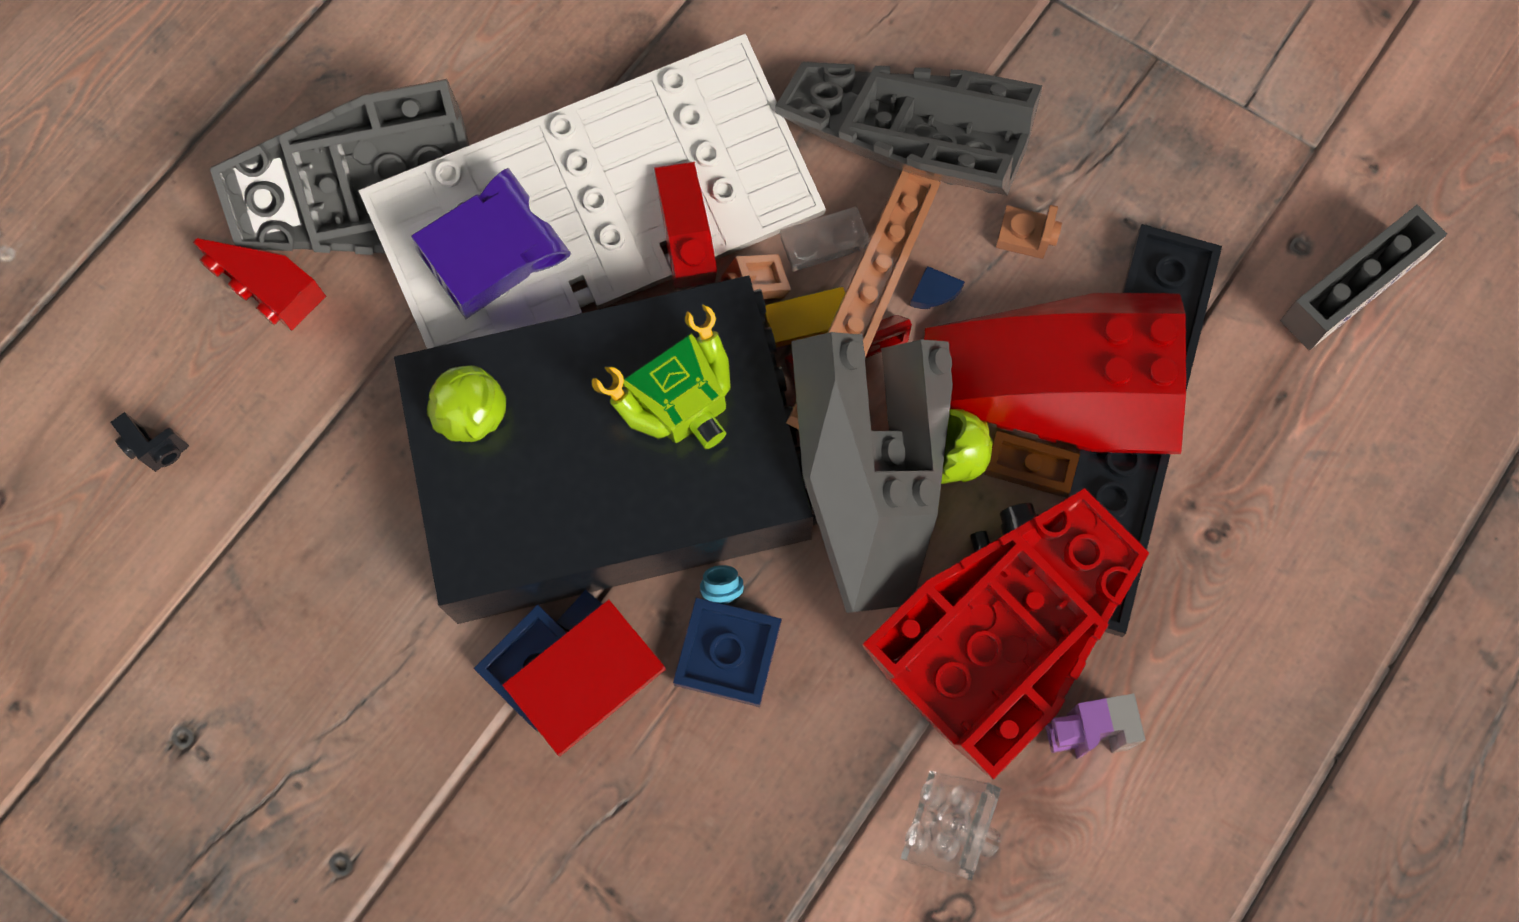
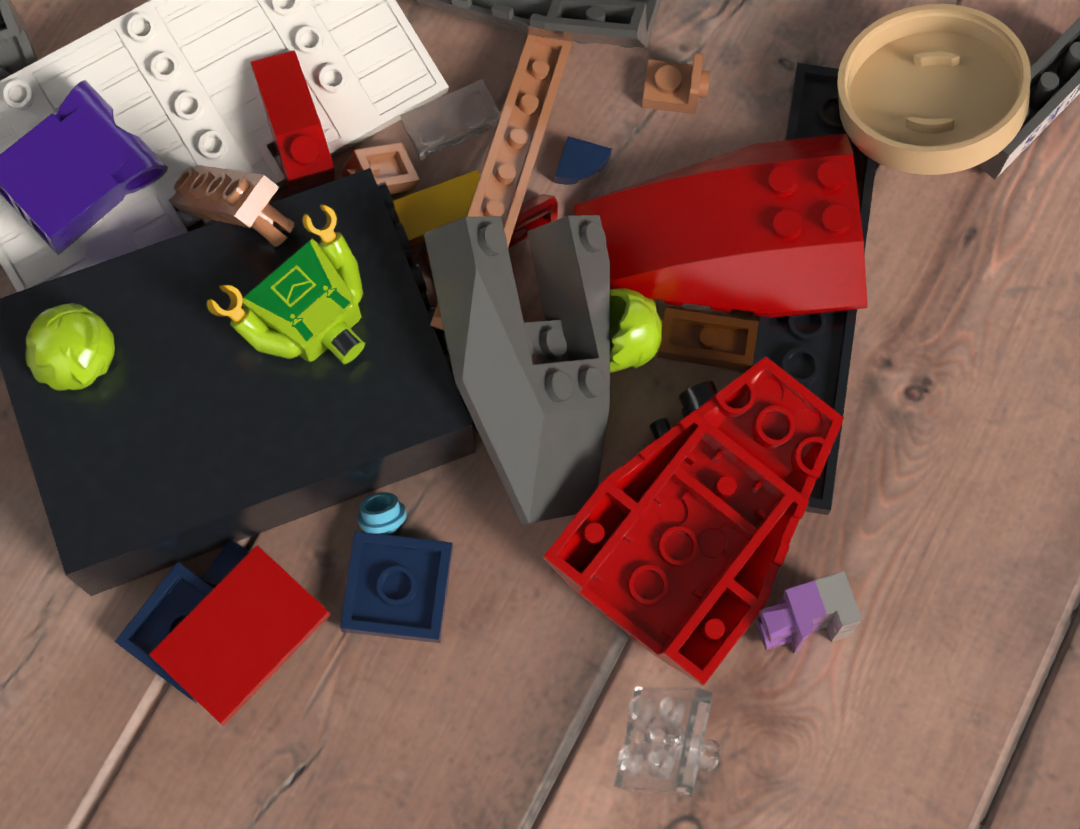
camera: 10 degrees left, 0 degrees up
(624, 289) = (233, 199): none -> nougat plate
(1265, 263) = (934, 89): none -> tan piece

